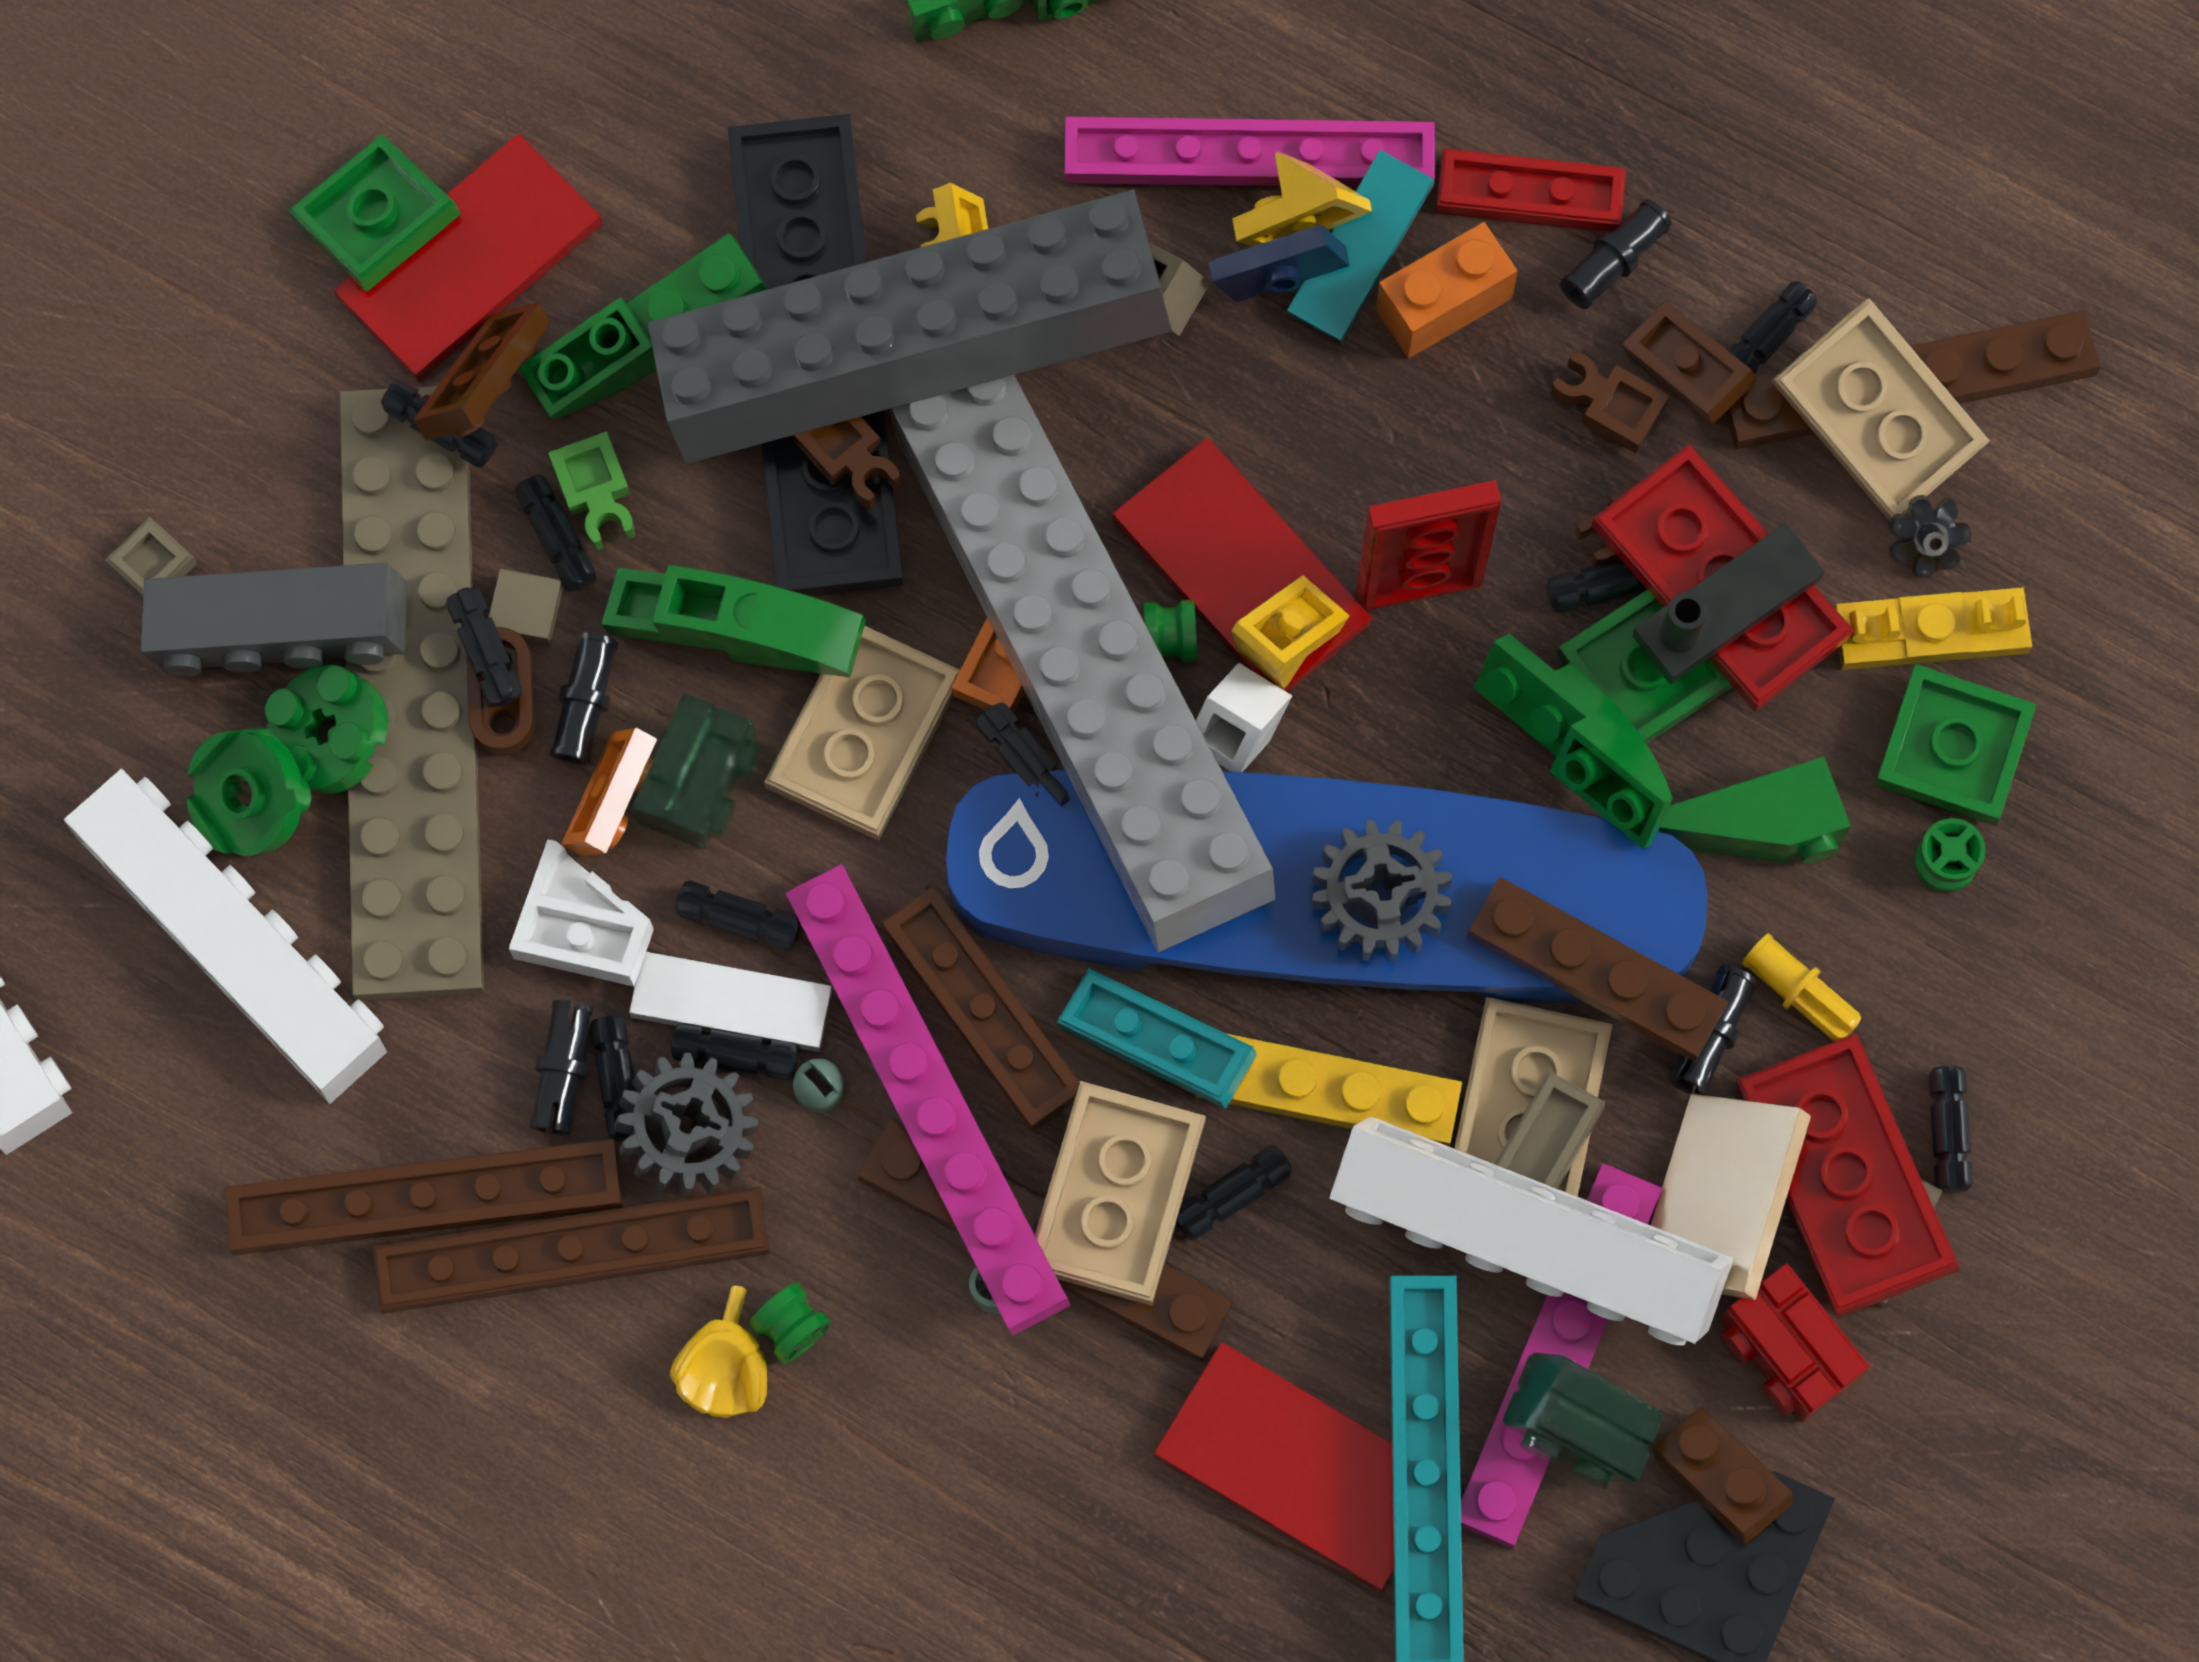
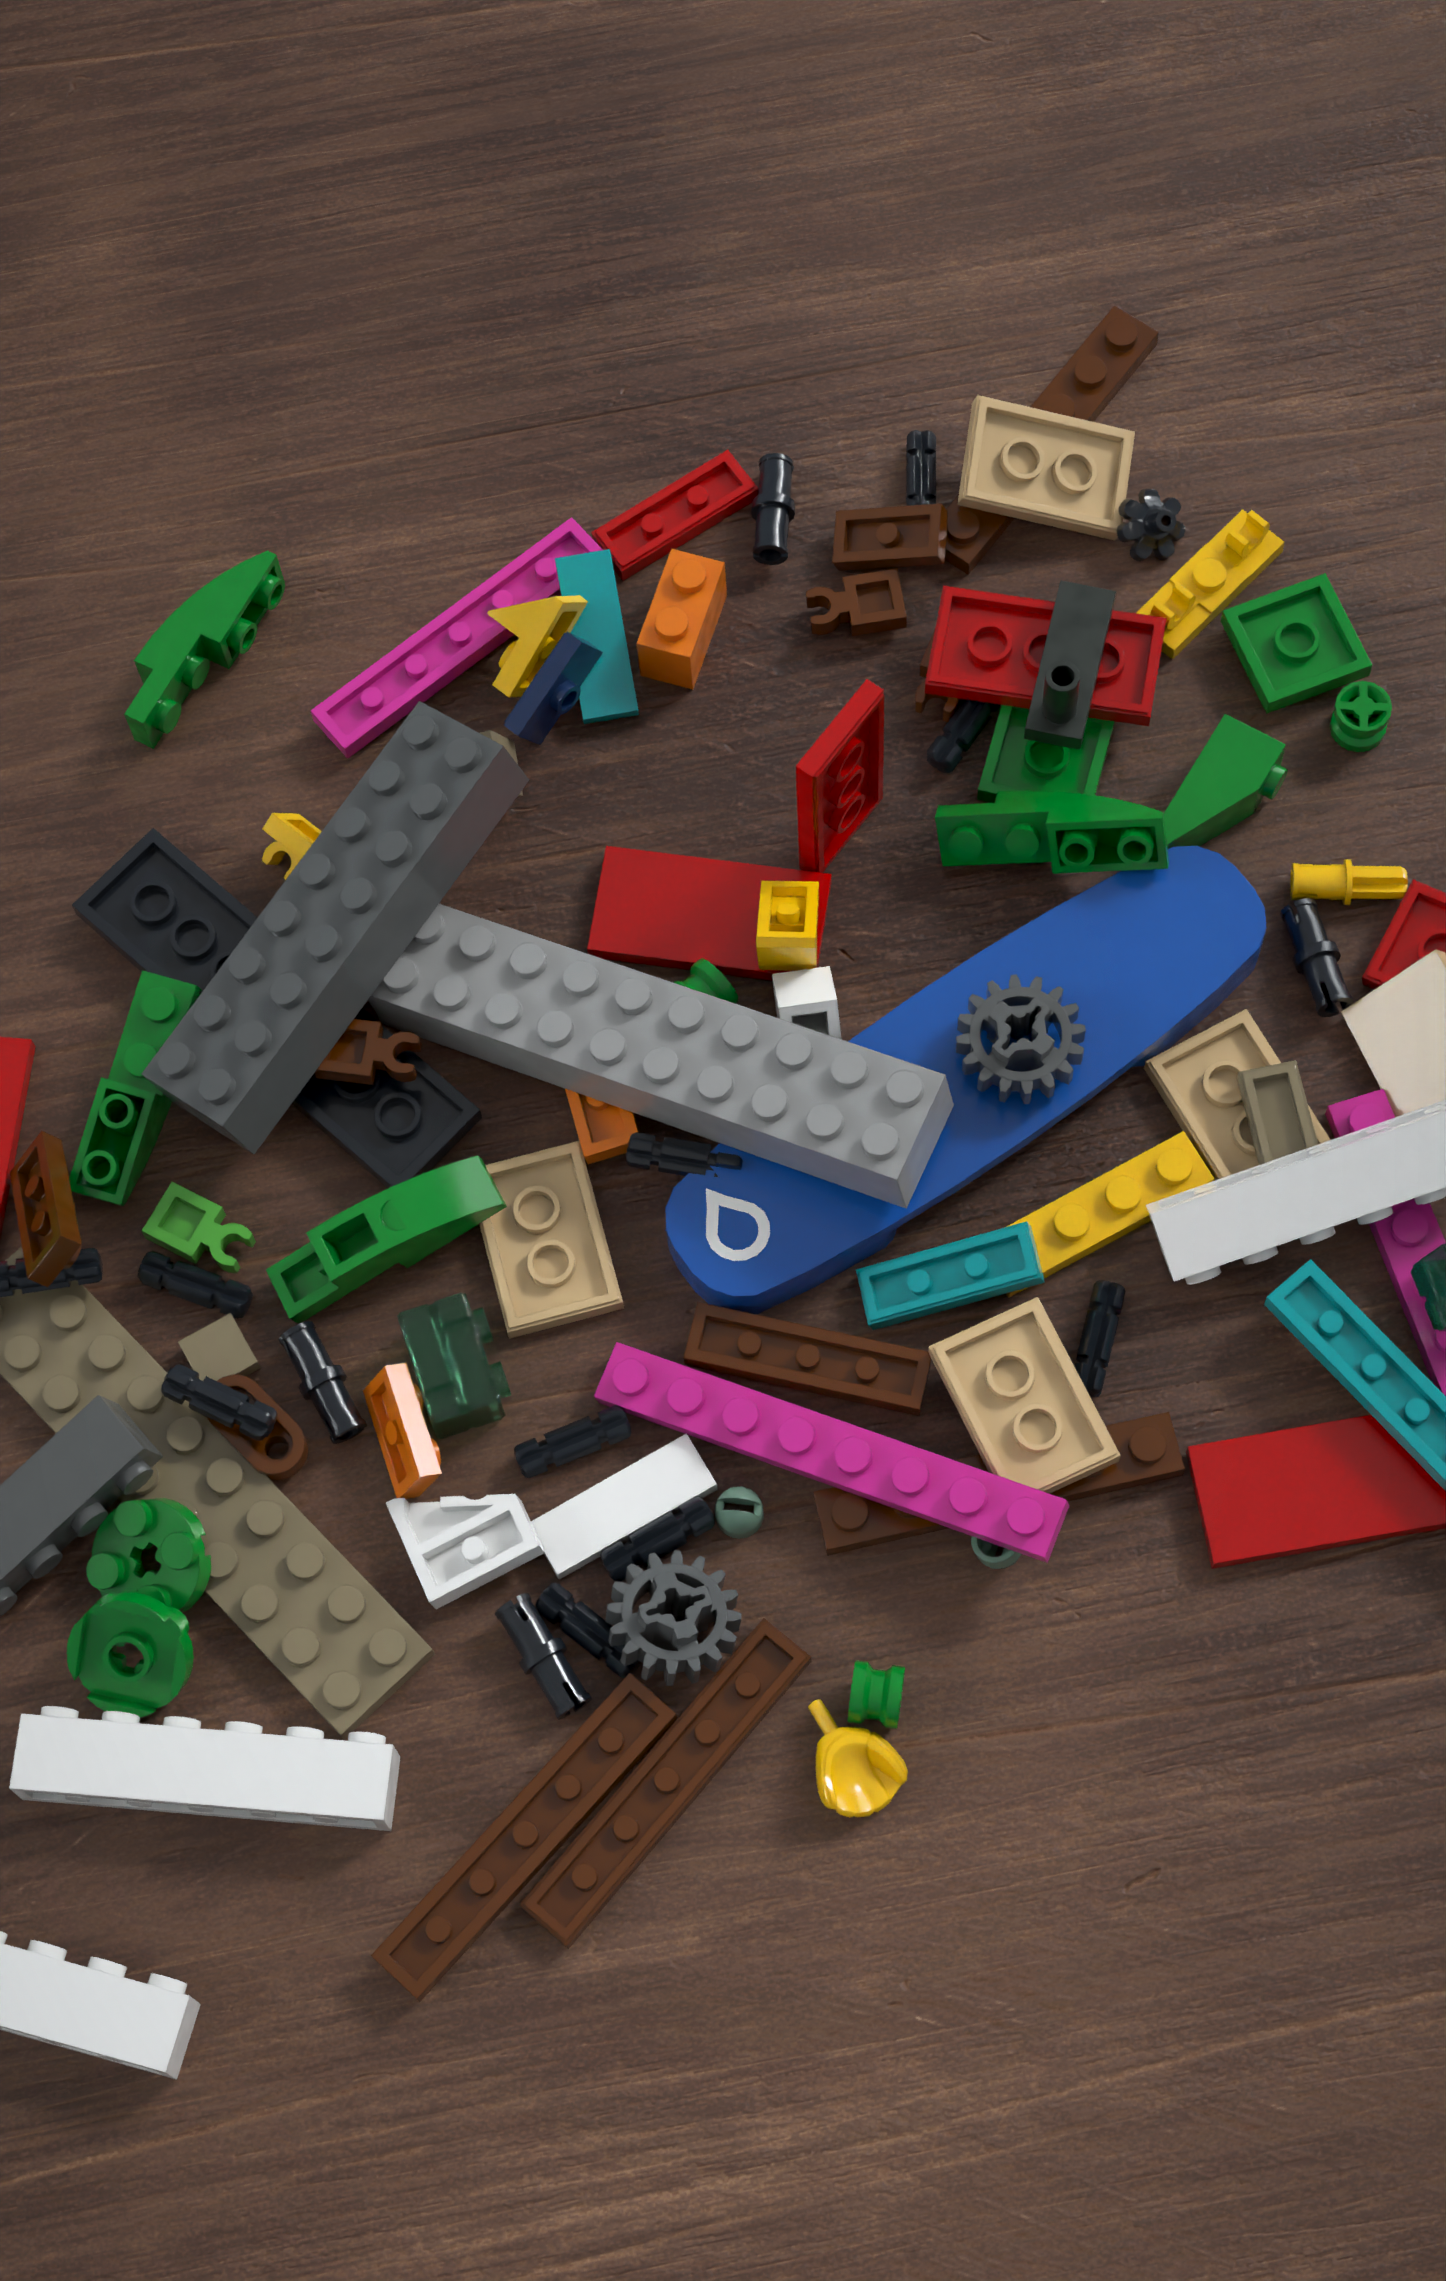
camera: 35 degrees left, 5 degrees down
(1597, 969) = (1211, 973): reddish brown plate -> none

